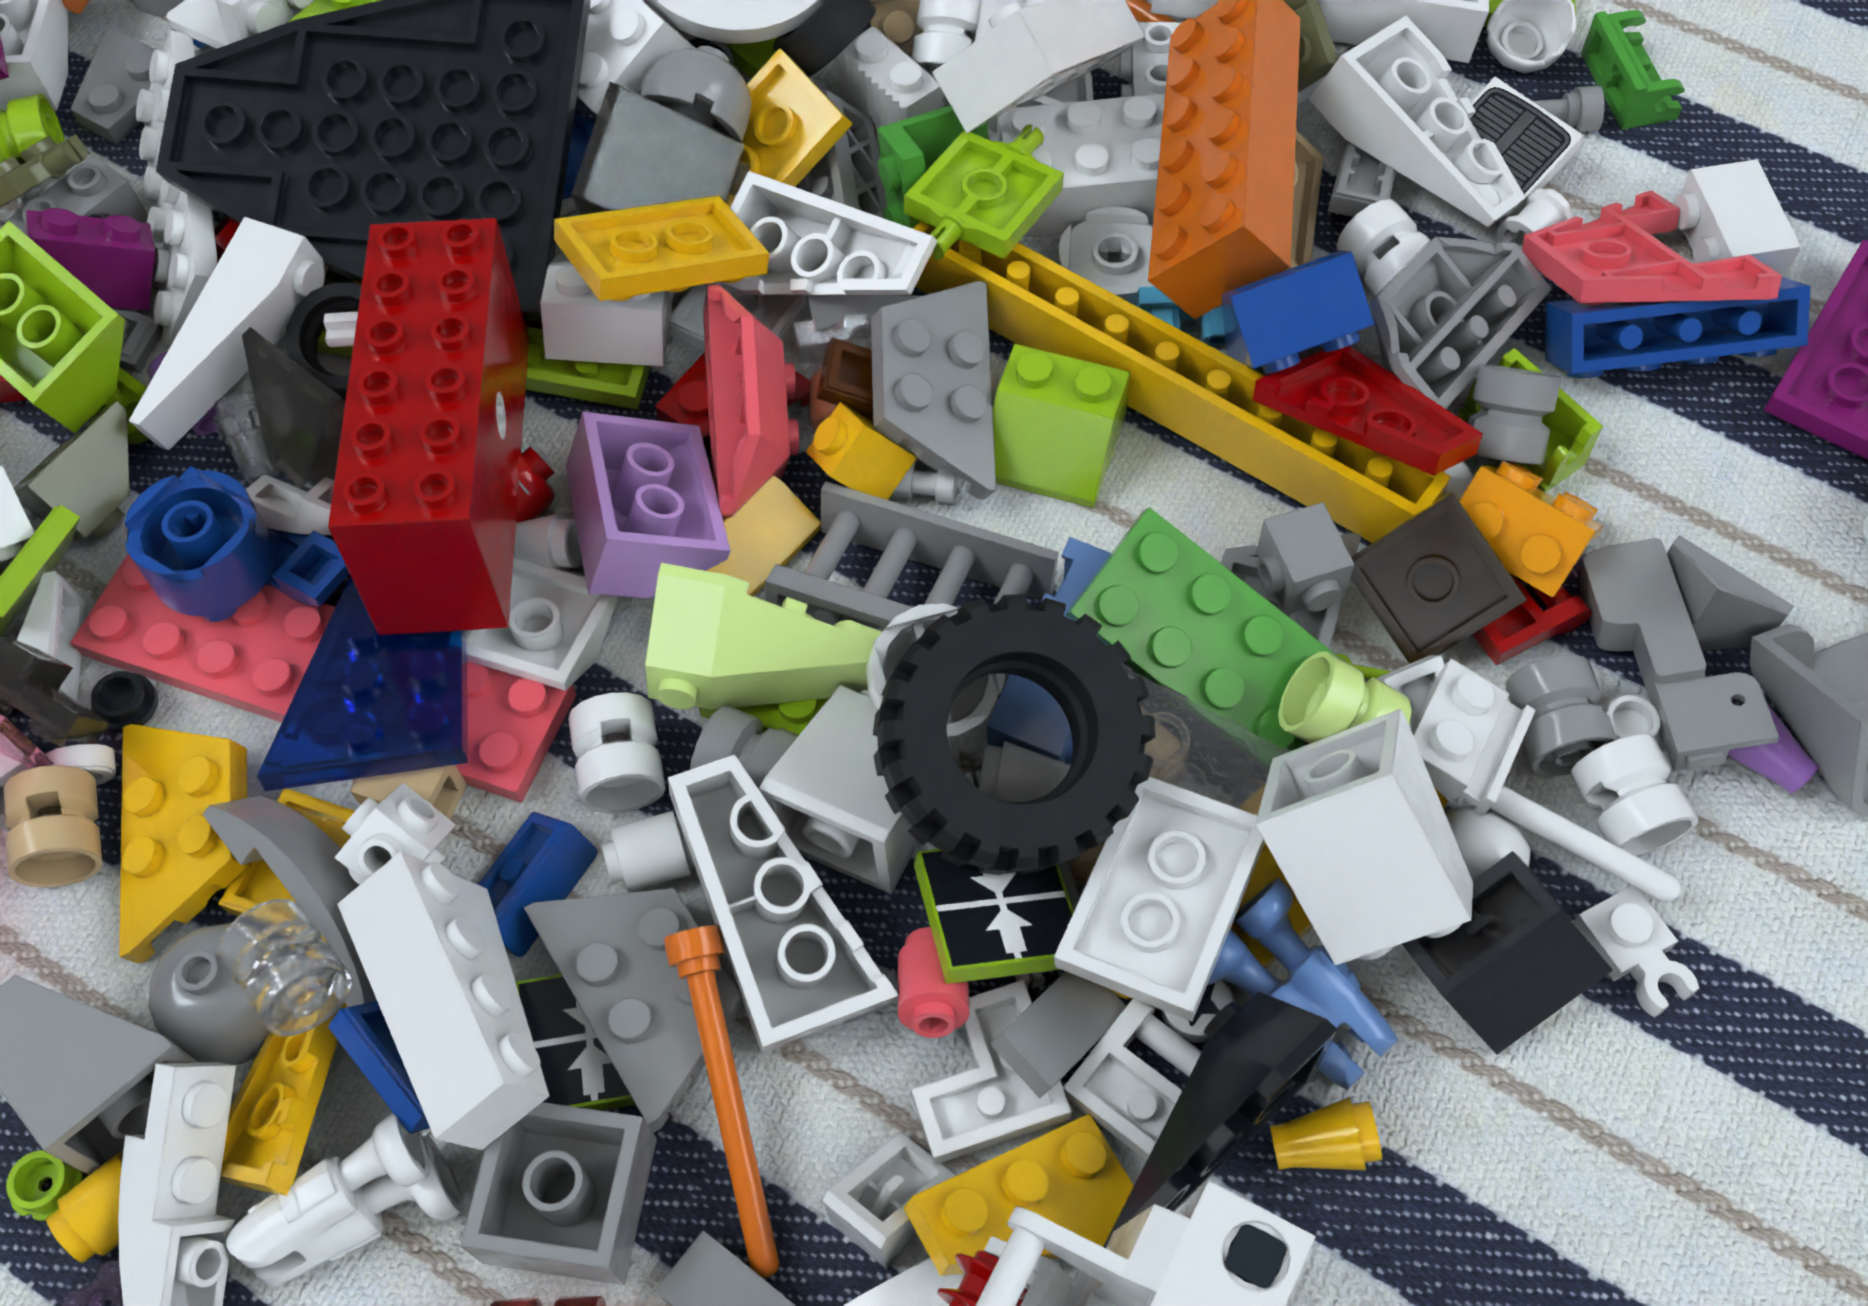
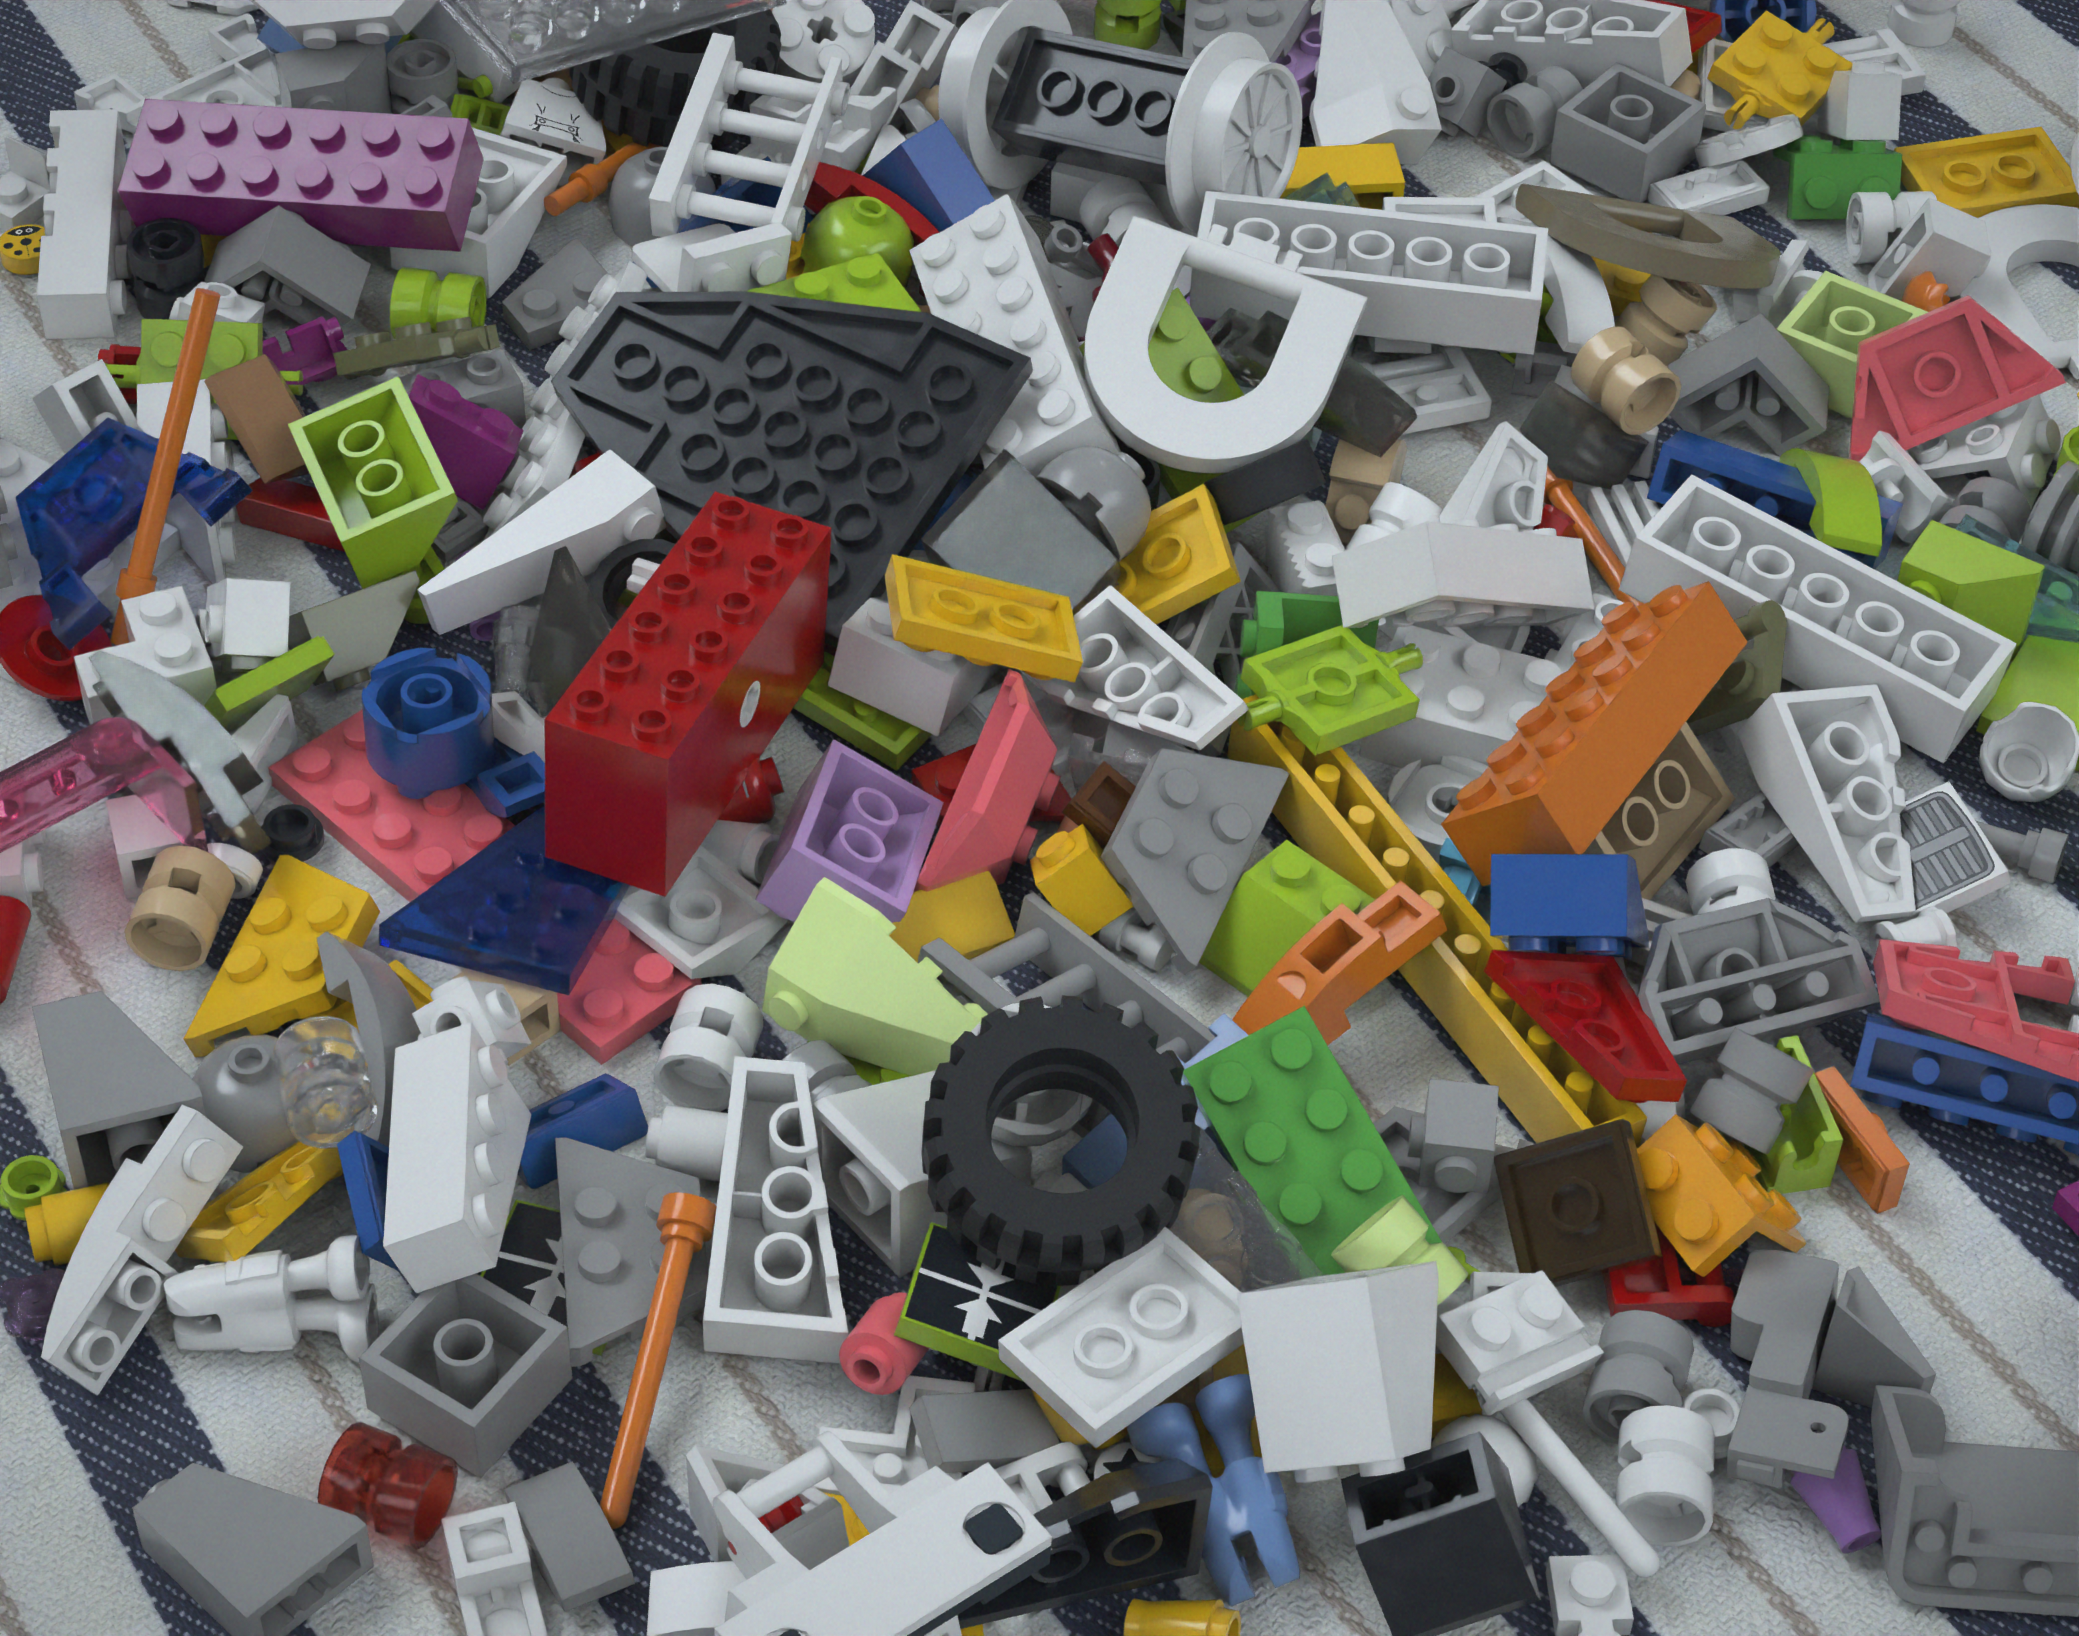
camera: 20 degrees right, 15 degrees down
(1124, 453) = (1343, 961): none -> orange slope
(1625, 430) = (1867, 1151): none -> orange plate

